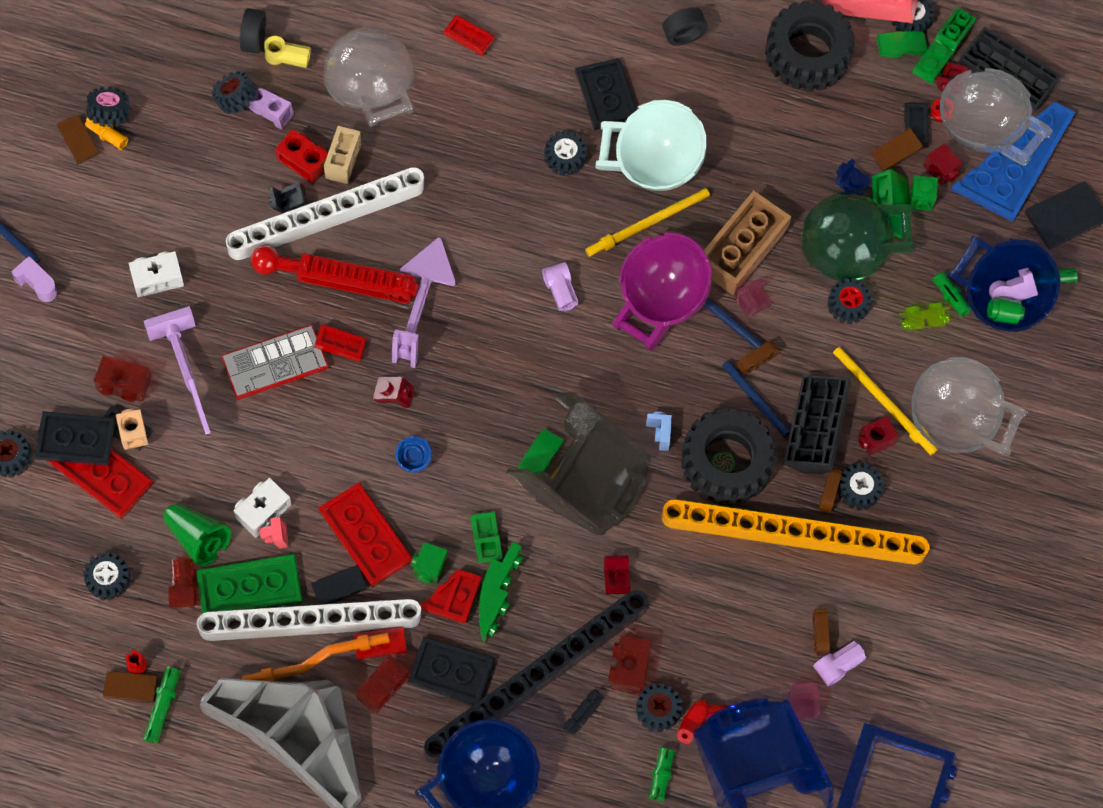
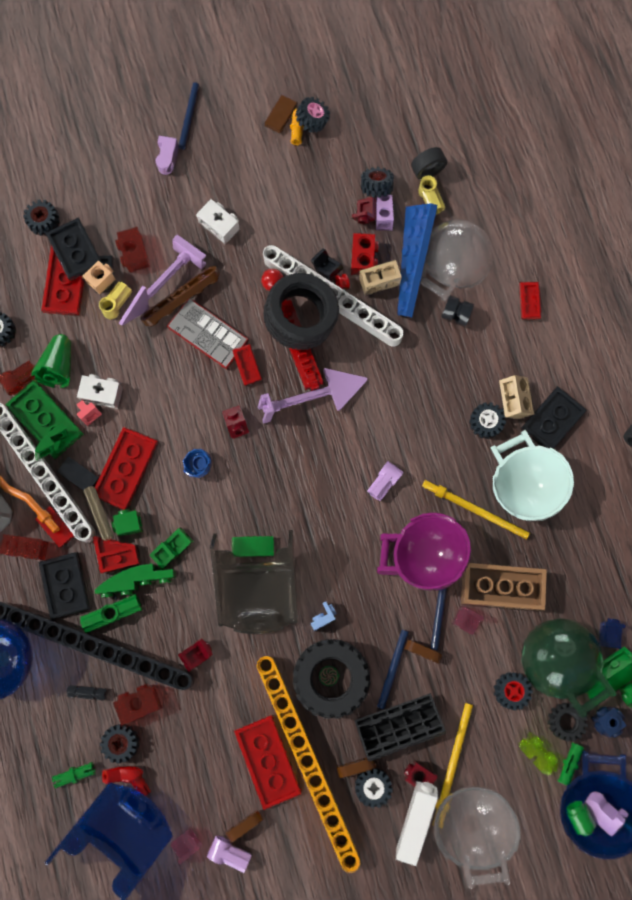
camera: 65 degrees right, 10 degrees up
(167, 431) = (116, 299): none -> light yellow piece
(213, 363) = (168, 304): none -> reddish brown piece
(256, 124) = (365, 211): none -> dark red bracket
(286, 584) = (46, 445): none -> green slope
(317, 192) = (342, 282): none -> red bush
(327, 217) = (303, 286): none -> black tyre
(331, 96) = (416, 238): none -> blue wing
(399, 584) = (98, 513): none -> dark tan axle
(433, 105) = (457, 310): none -> black wheel
(518, 622) = (122, 609): none -> green piece
(561, 109) = (516, 397): none -> tan brick
(771, 574) = (267, 762): none -> red tile
(904, 282) = (556, 728): none -> black tyre
(919, 461) = (416, 823): none -> white brick
(933, 233) = (603, 718): none -> dark blue brick

